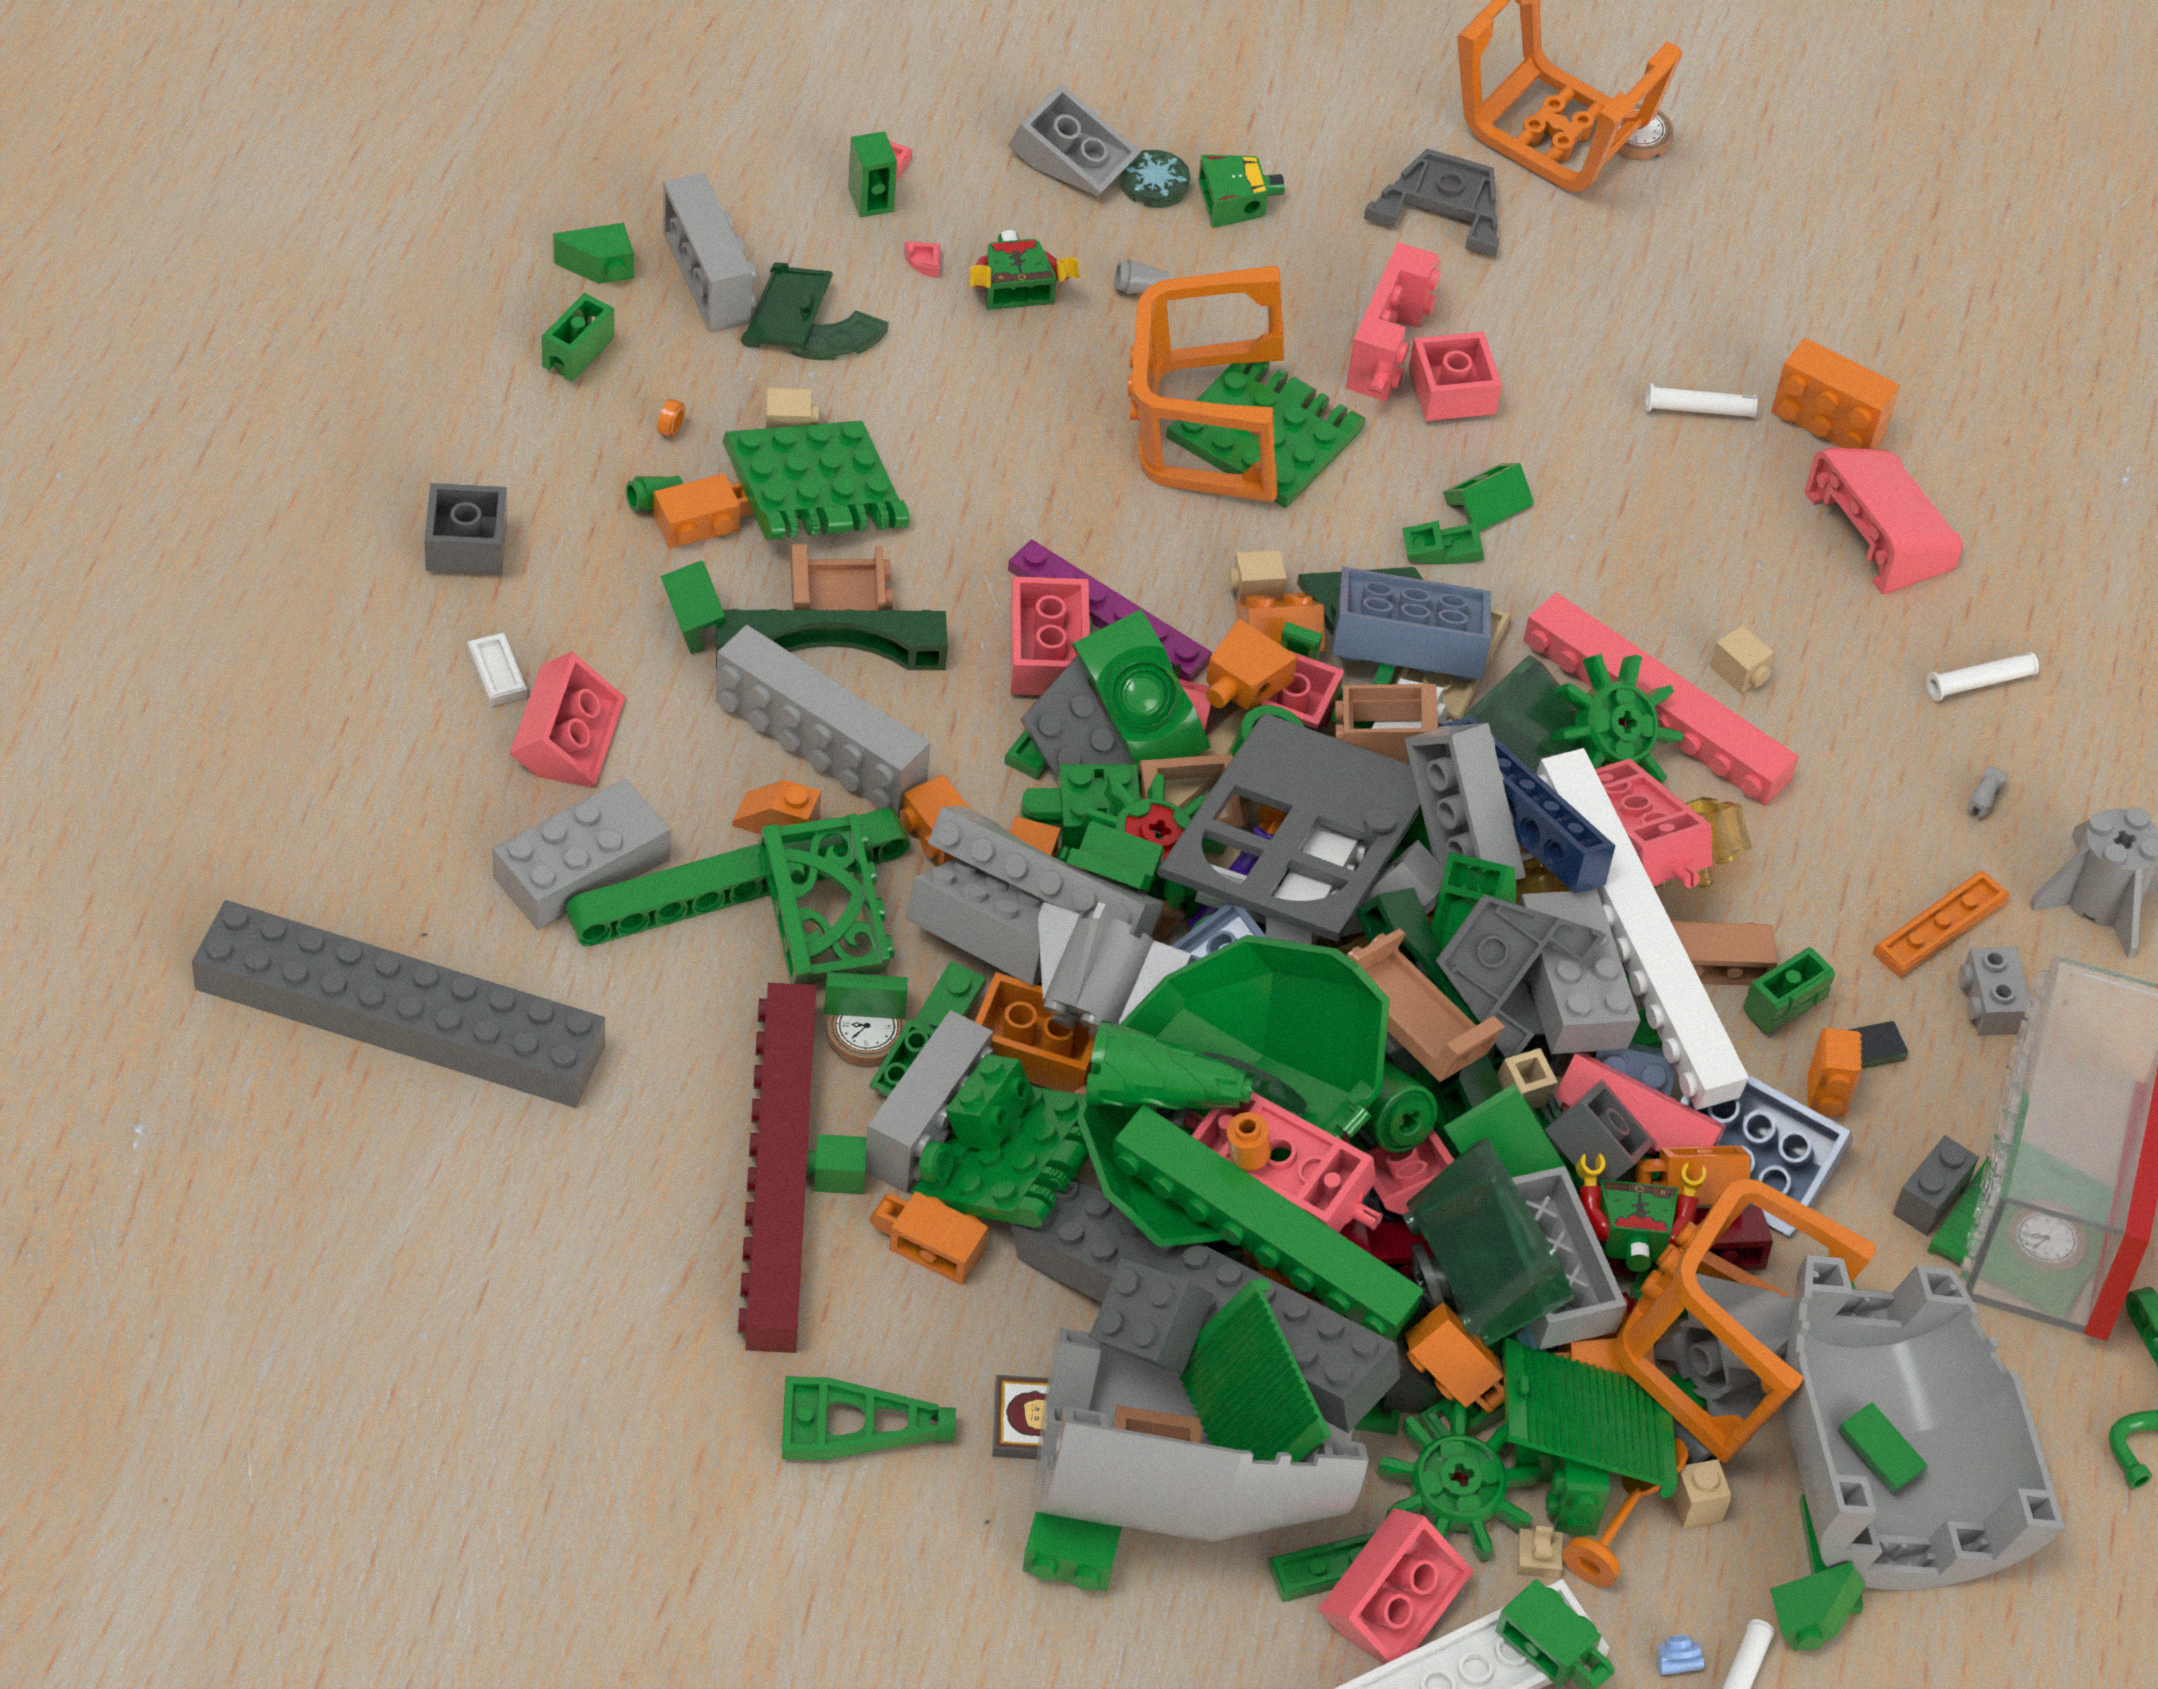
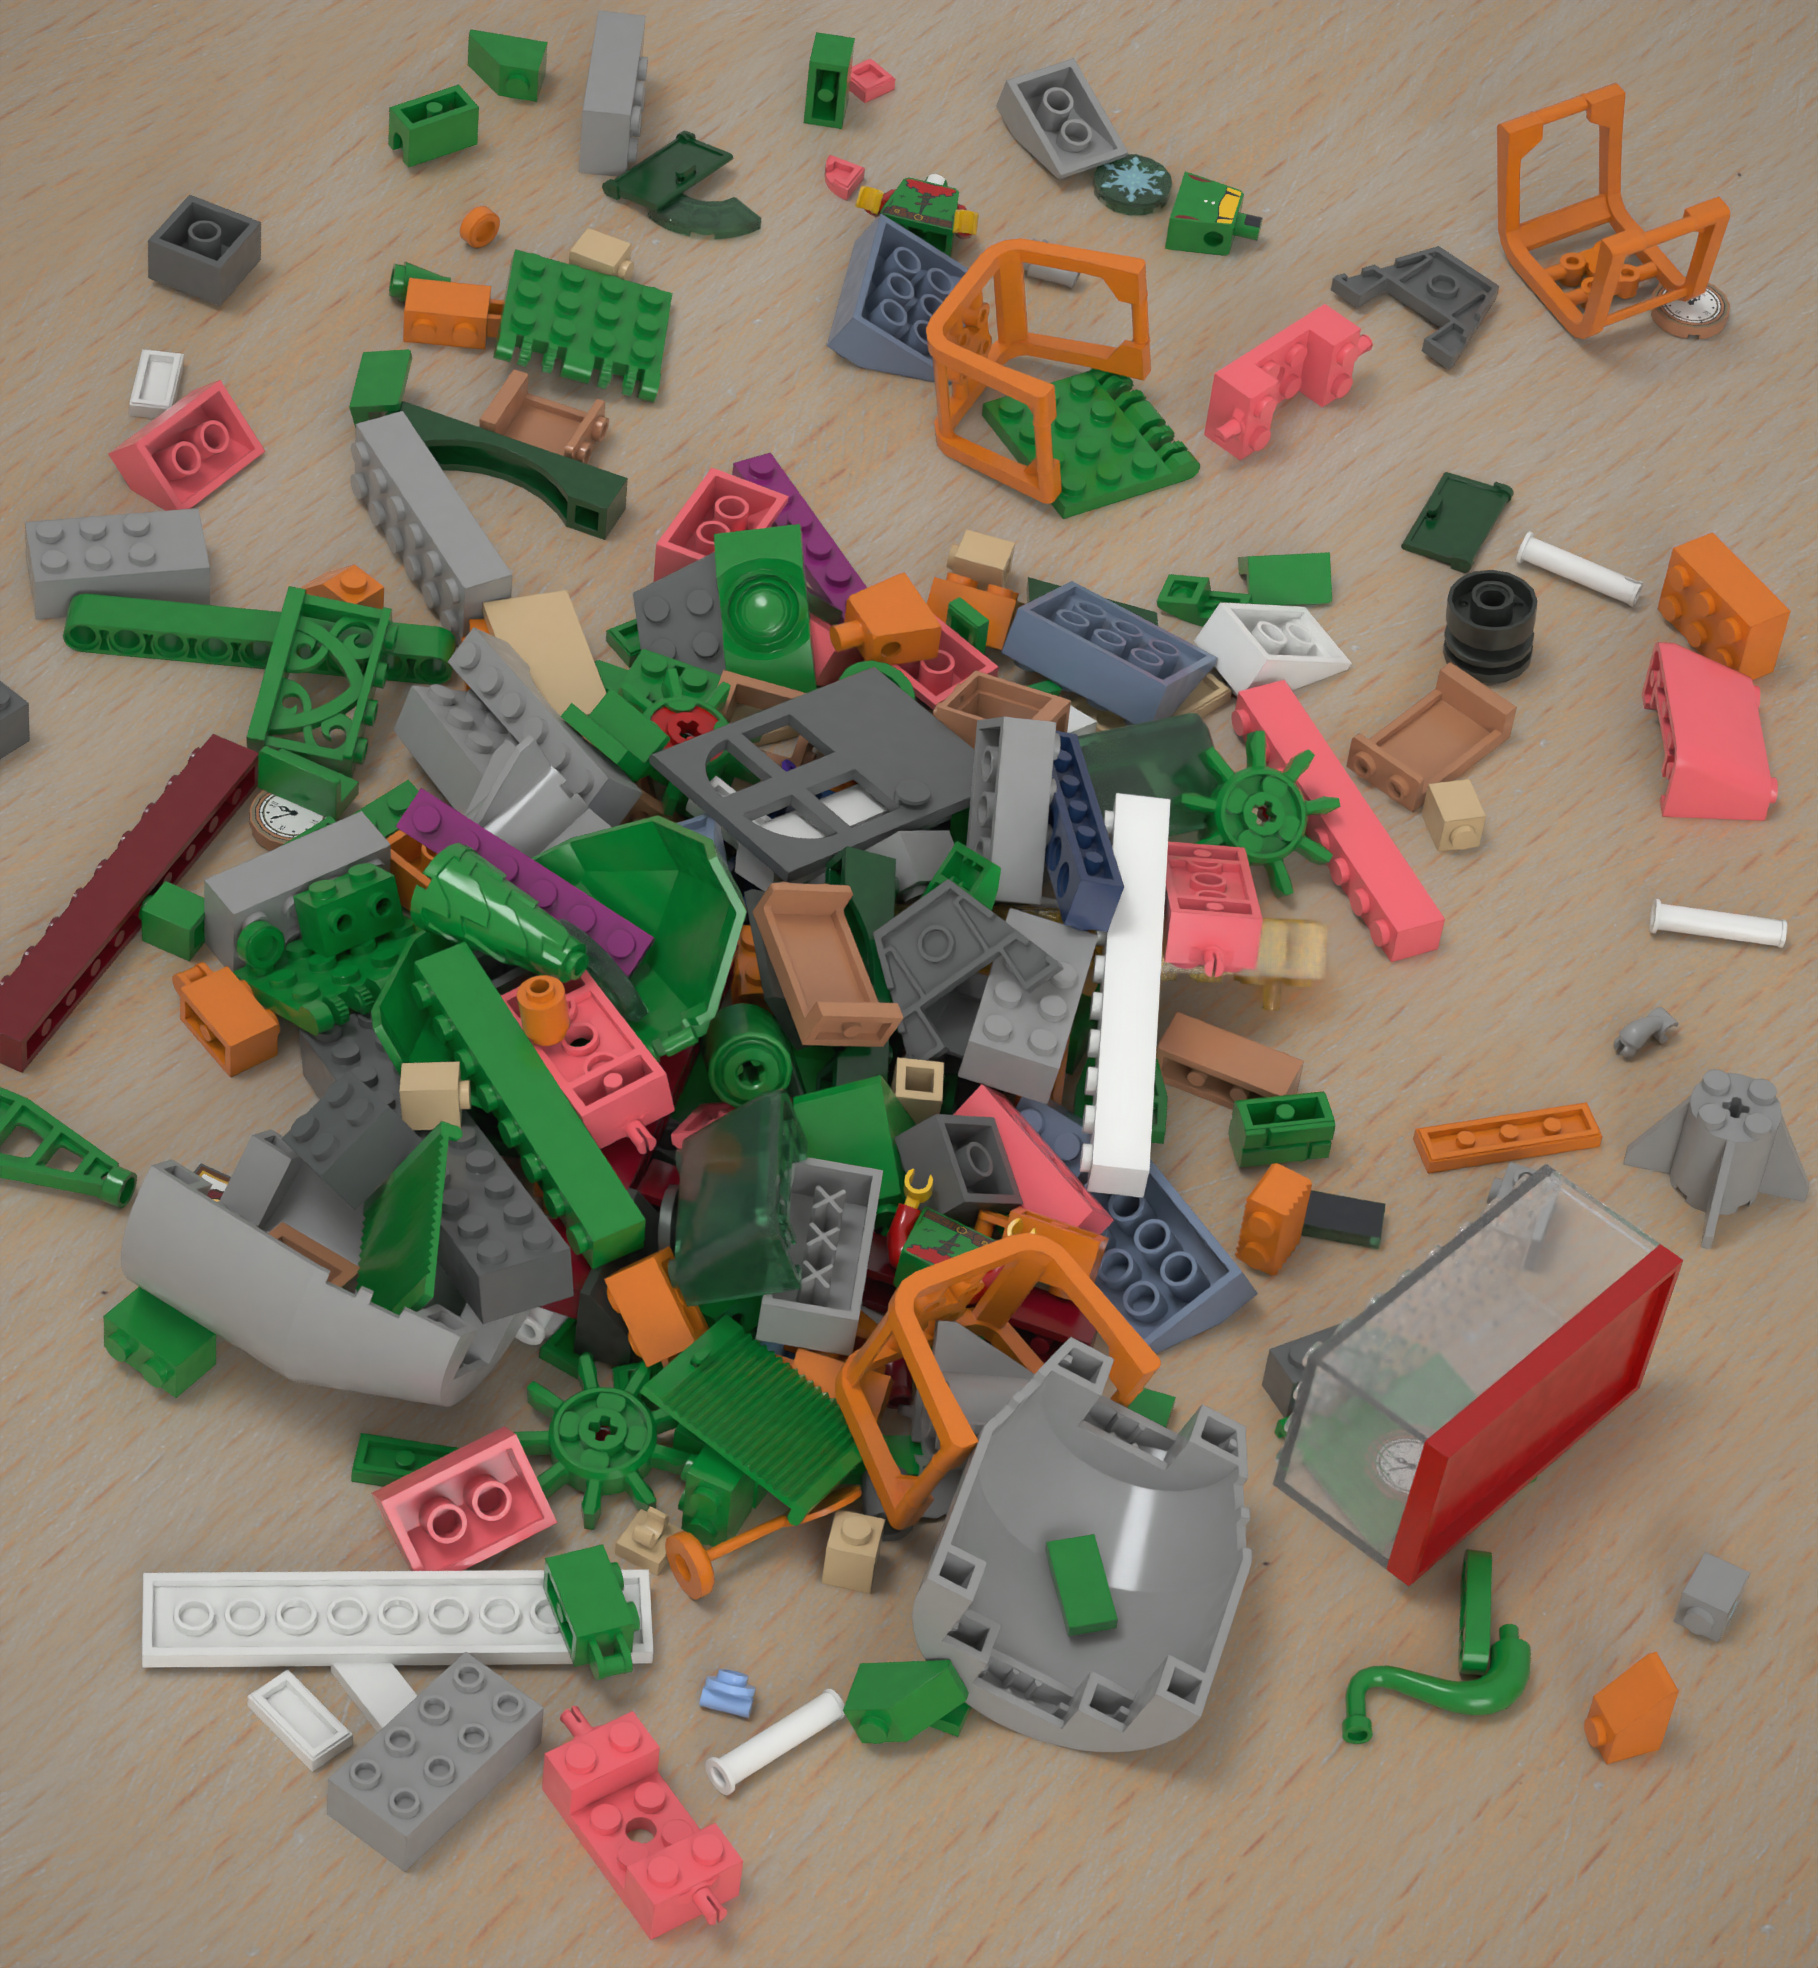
camera: 25 degrees right, 5 degrees down
(979, 782) = (553, 645): none -> tan tile
(1051, 362) = (889, 298): none -> sand blue slope
(1082, 1014) = (440, 826): none -> magenta plate
(1191, 1248) = (433, 1094): none -> tan brick
(1454, 376) = (1317, 454): coral brick -> none
(1520, 566) = (1269, 645): none -> white slope
(1587, 392) = (1457, 520): none -> dark green door
(1676, 482) = (1490, 625): none -> pearl dark grey wheel
(1684, 596) = (1433, 738): none -> nougat panel

